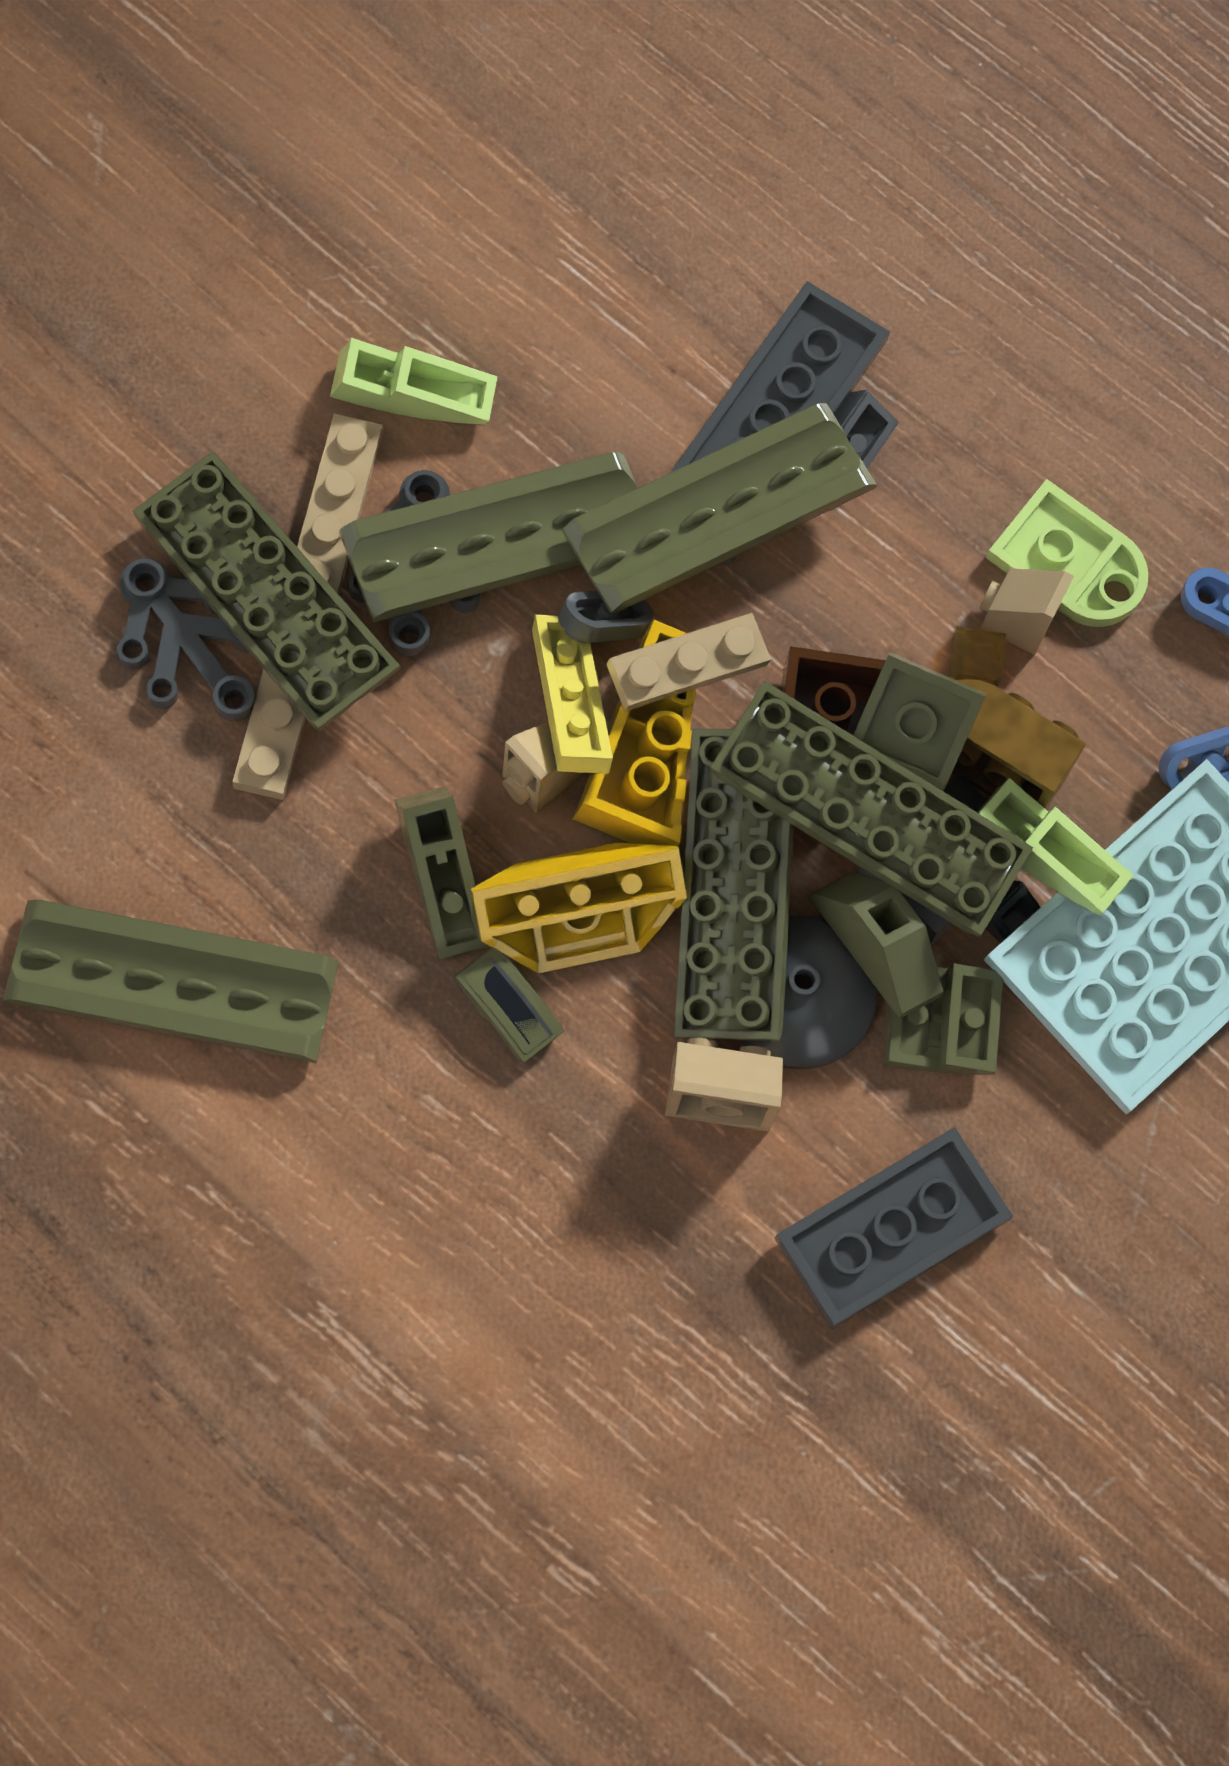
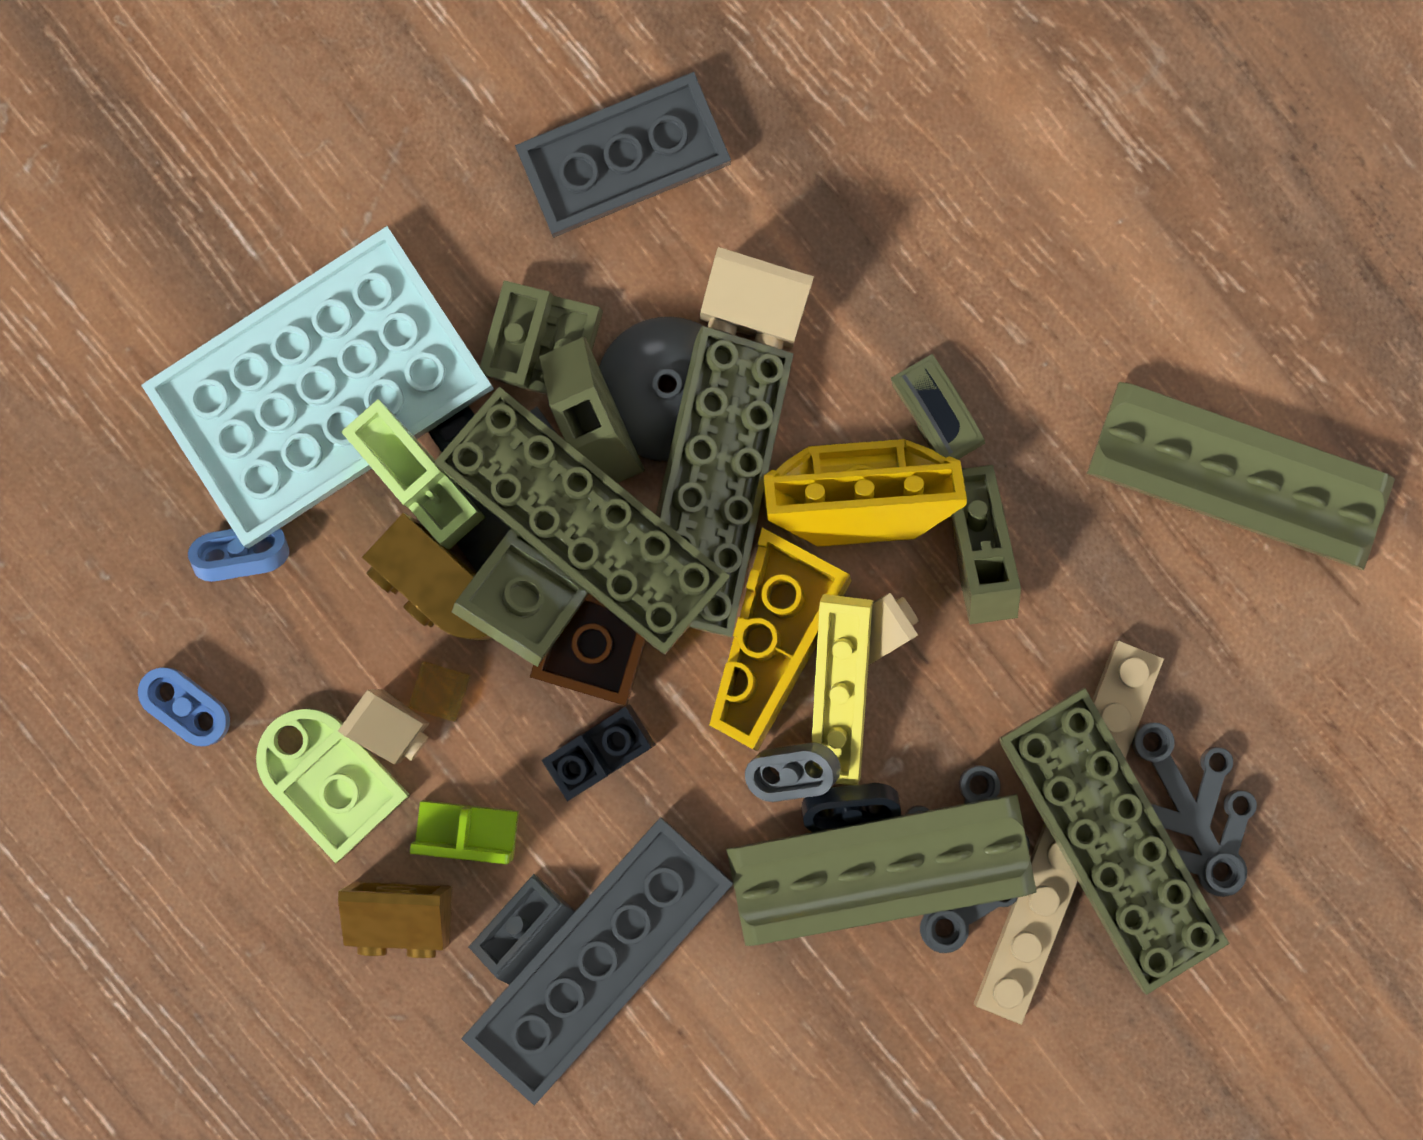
camera: 160 degrees left, 15 degrees up
(412, 384) = (939, 1045): yellowish green slope -> none
(536, 595) = (850, 806): none -> black plate
(688, 661) = (726, 700): tan plate -> none
(717, 507) = (665, 865): olive plate -> none
(807, 615) = (598, 752): none -> black slope
(923, 520) = (465, 832): none -> lime panel
(977, 435) = (395, 916): none -> pearl gold slope

